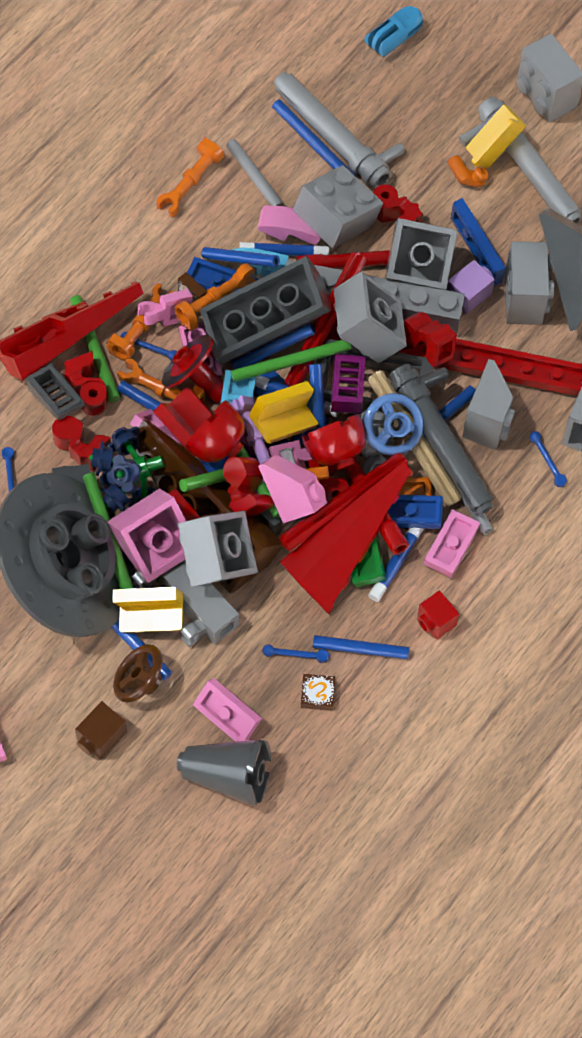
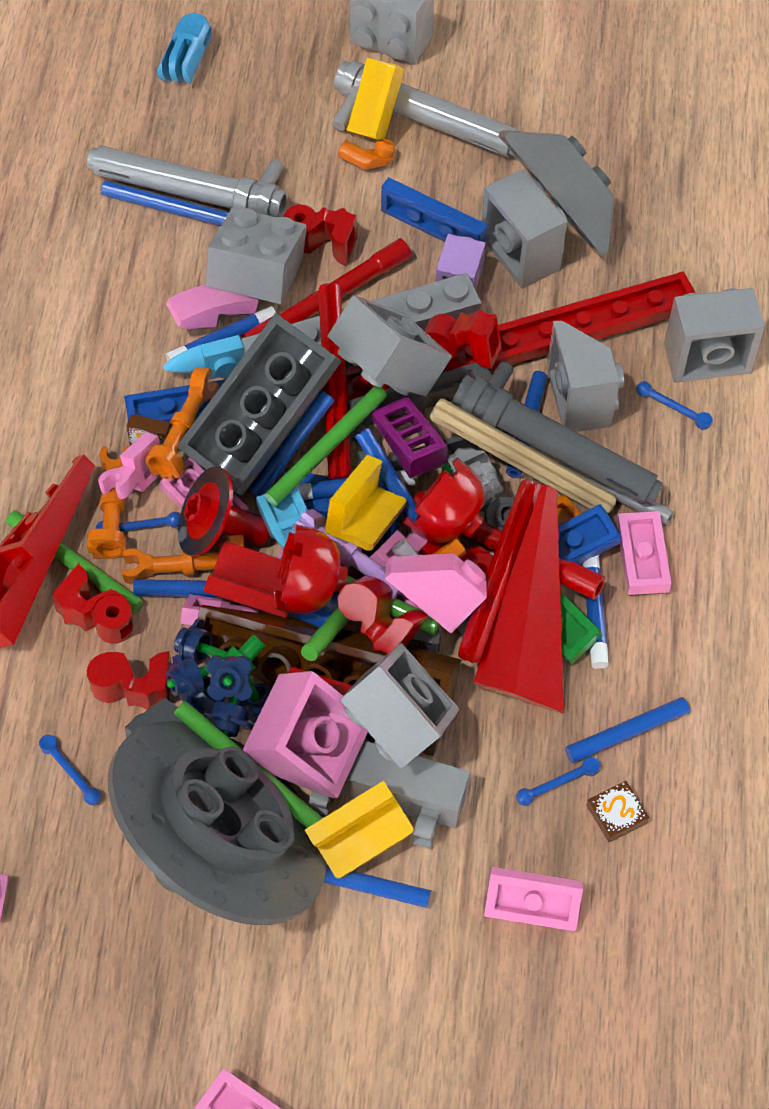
camera: 30 degrees left, 5 degrees down
(47, 376) = (43, 619): dark grey slope -> none
(100, 731) = (398, 1017): reddish brown brick -> none
(141, 676) = (401, 917): reddish brown piece -> none
(210, 154) = (64, 274): orange piece -> none
(229, 768) = (585, 968): dark grey cone -> none
(240, 257) = (183, 365): blue piece -> none
(254, 174) = (129, 272): light grey piece -> none
(405, 425) = (515, 443): medium blue piece -> none
(421, 254) = (388, 253): light grey brick -> none
(437, 615) = (689, 641): red plate -> none

